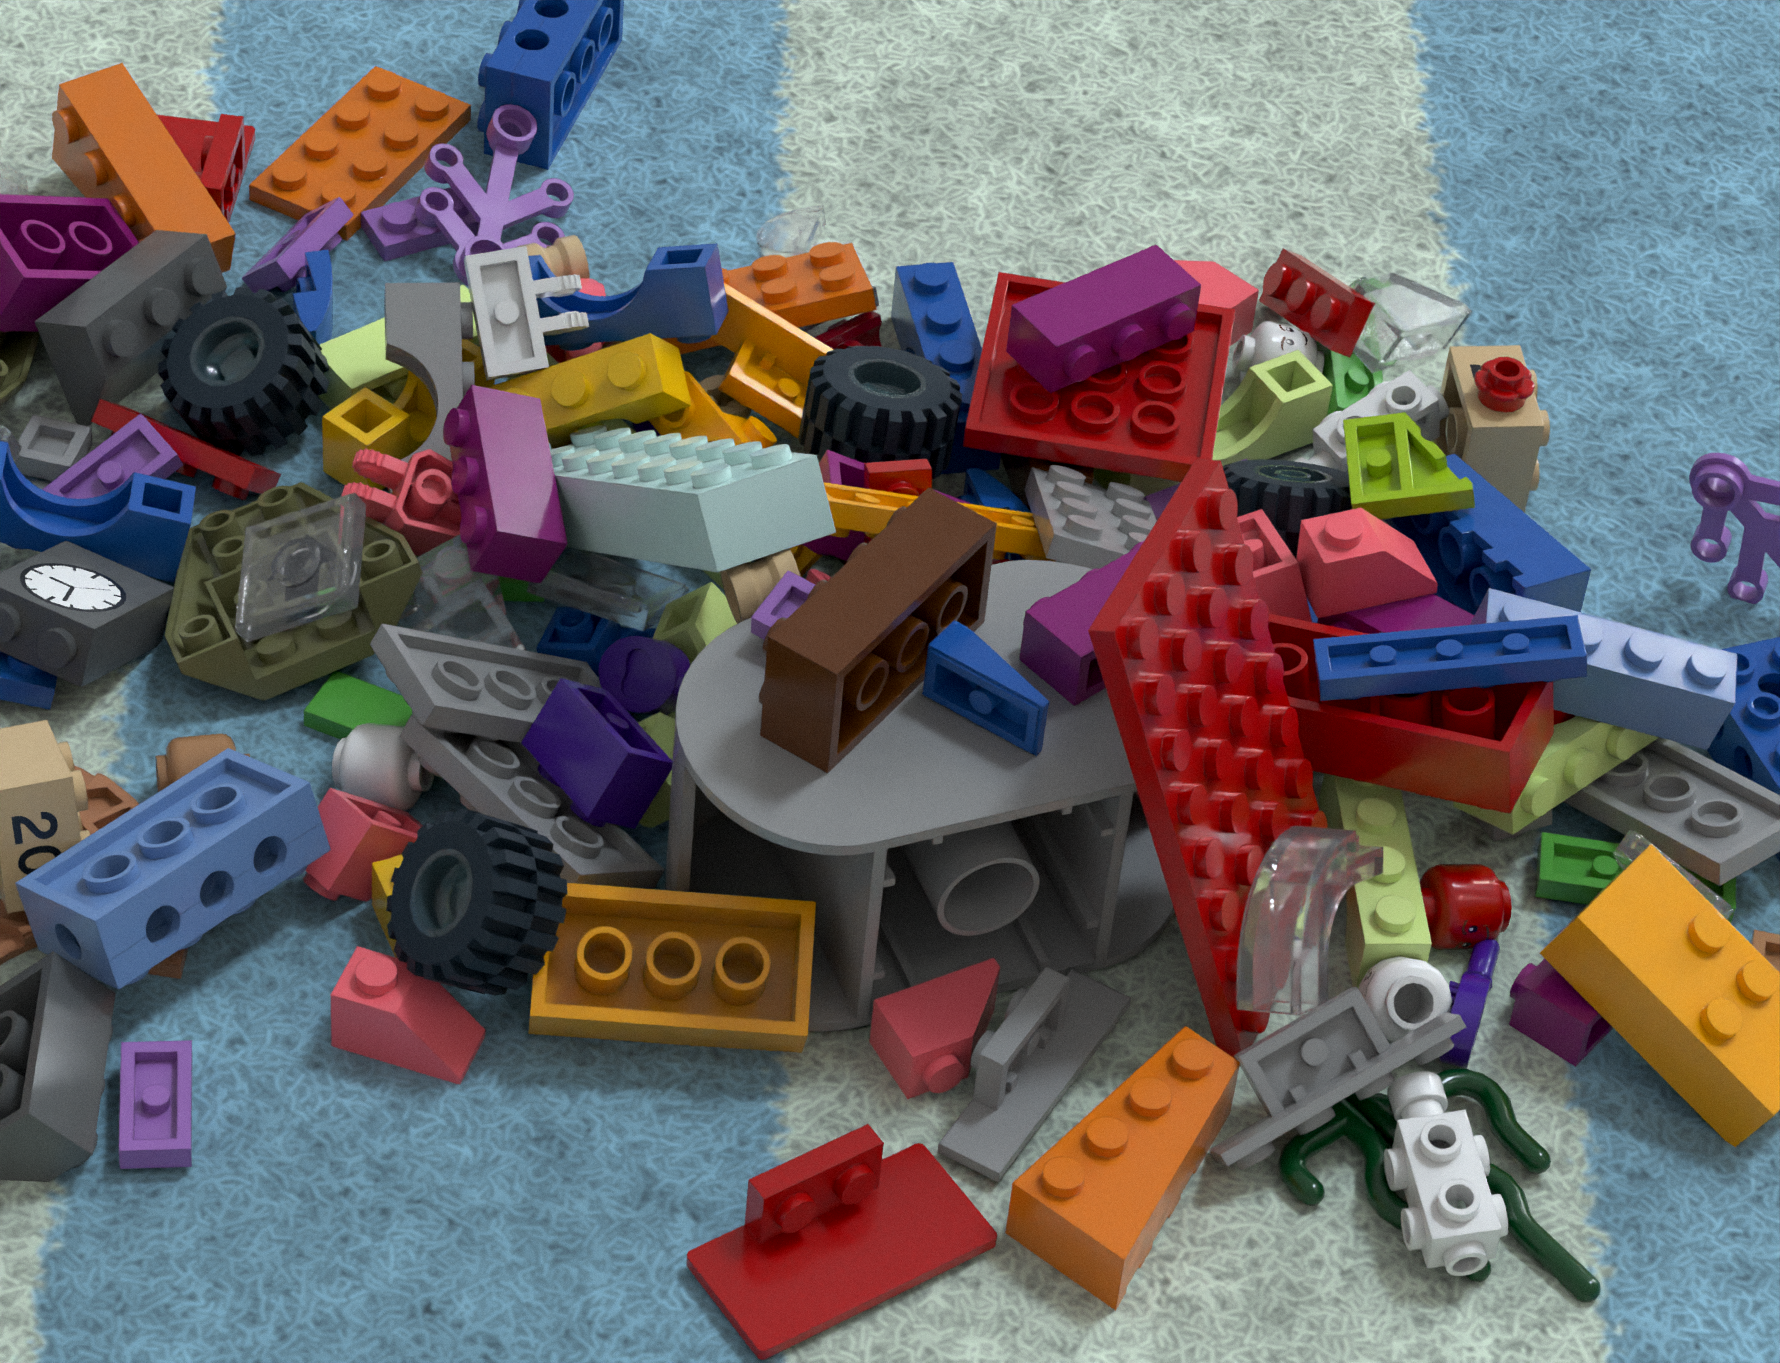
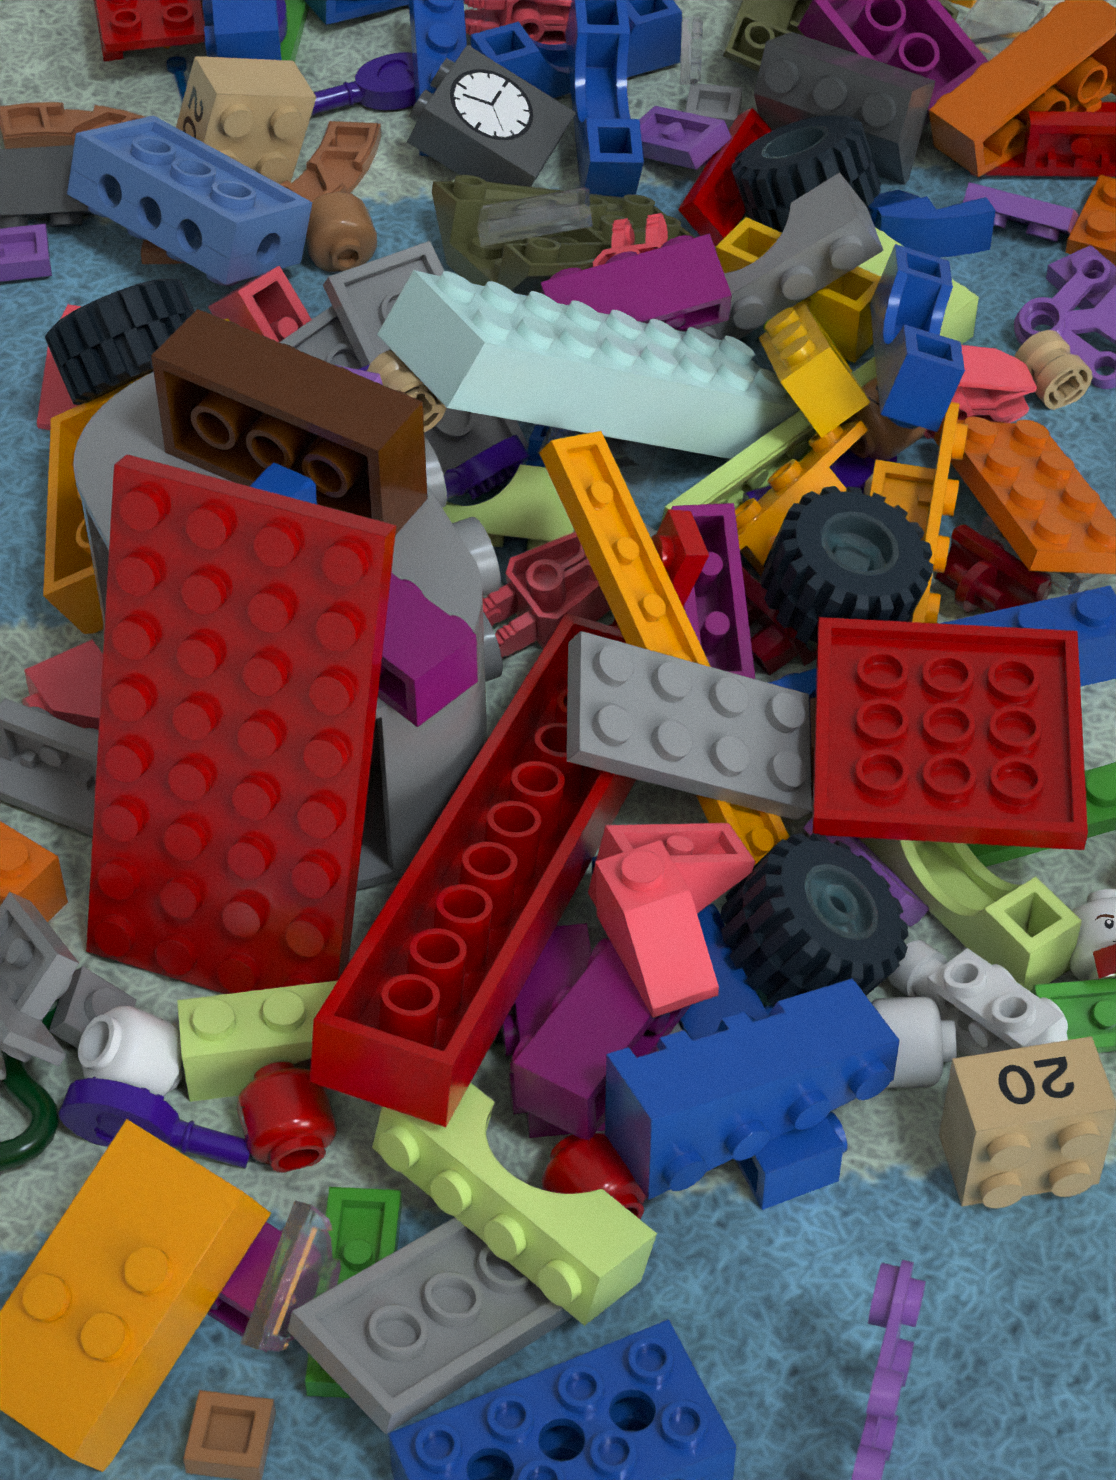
camera: 90 degrees right, 5 degrees up
(508, 311) = (853, 269): white hinge -> none
(1103, 318) = (996, 697): magenta brick -> none
(1292, 916) = (179, 896): clear arch -> none
(1398, 470) = (822, 961): lime wing -> none
(1450, 658) = (448, 967): blue plate -> none
(1504, 384) = (1017, 1091): red plate -> none
(1635, 674) = (526, 1156): medium blue brick -> none

